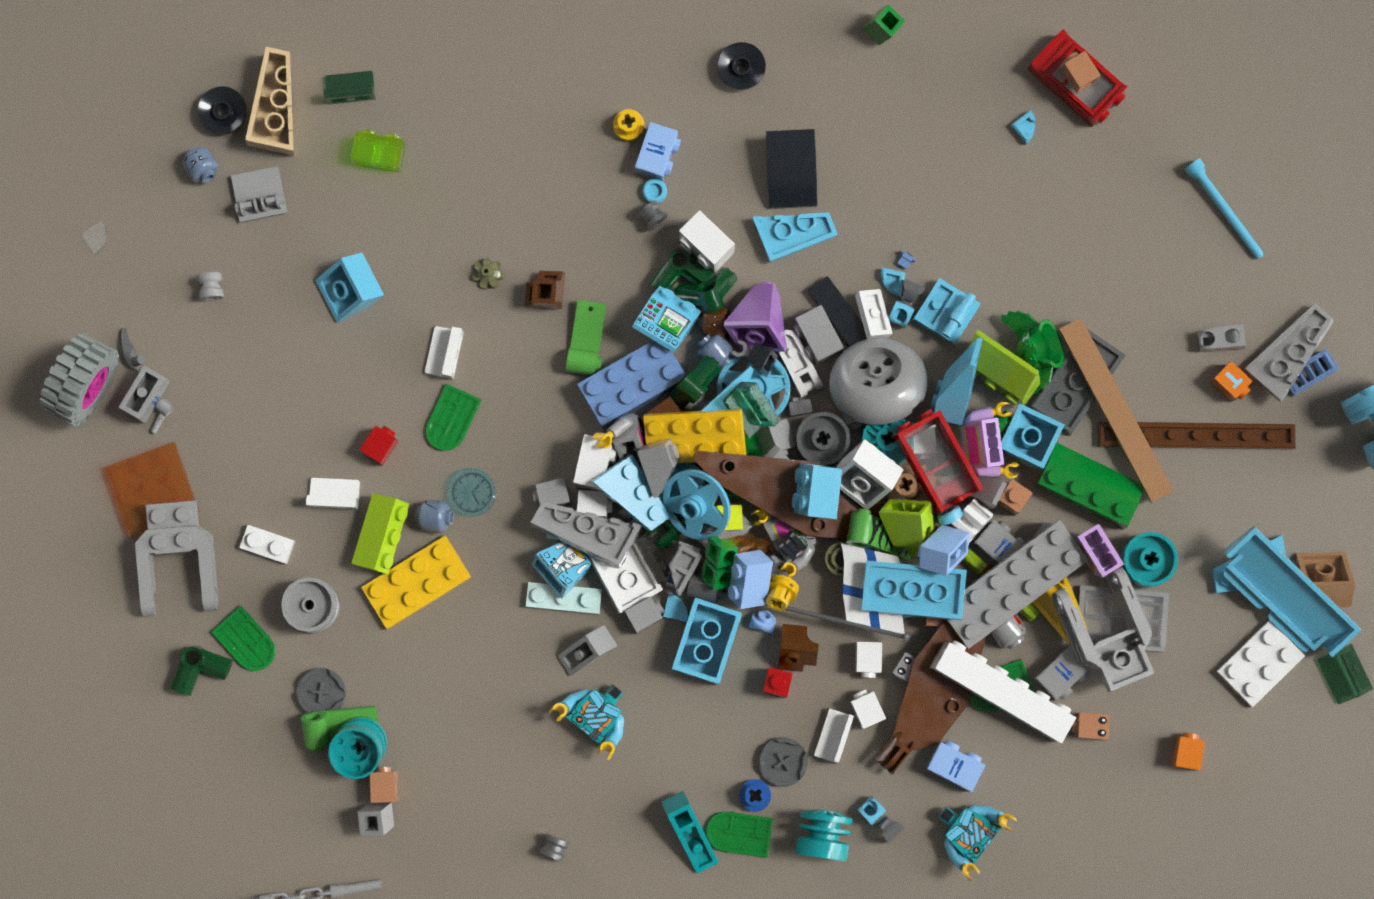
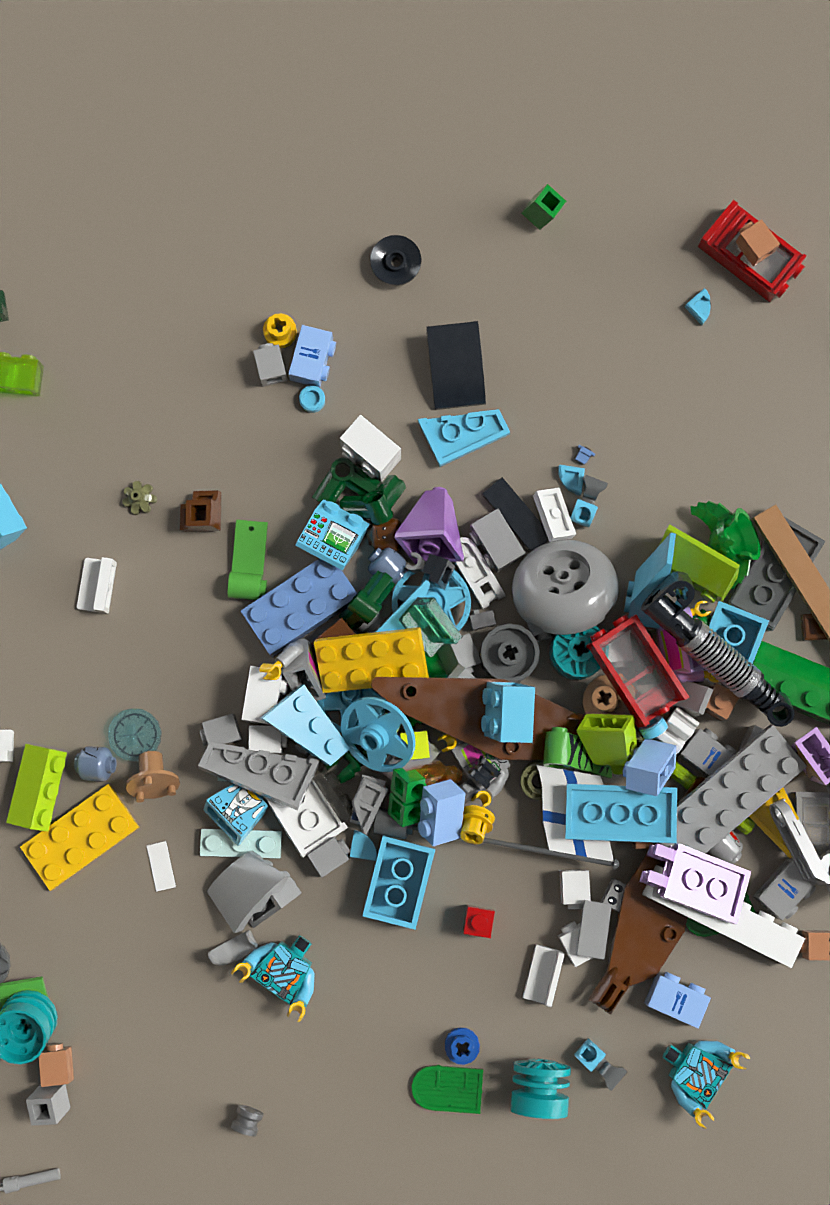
camera: 10 degrees left, 0 degrees up
(379, 444) = (31, 690): red brick -> none
(451, 418) = (108, 656): green window -> none
(486, 533) = (153, 779): none -> medium nougat piece
(489, 614) = (161, 866): none -> white sticker
(553, 693) = (234, 949): none -> light grey helmet
(566, 637) = (245, 888): none -> light grey slope
(618, 156) = (270, 364): none -> light grey brick
(652, 215) = (310, 424): flat silver wheel -> none
(658, 463) = (333, 693): light grey slope -> none
(689, 832) = (393, 1092): teal slope -> none
(763, 621) = (458, 854): light blue plate -> none
(783, 762) = (489, 1006): dark grey tile -> none
(796, 648) = (496, 882): reddish brown brick -> none
(868, 474) = (562, 689): white brick -> none
(882, 695) = (594, 929): none -> light grey tile
(947, 311) = (632, 507): medium azure plate -> none
(980, 656) = (698, 881): none -> tile
(995, 436) = (694, 637): none -> black piece

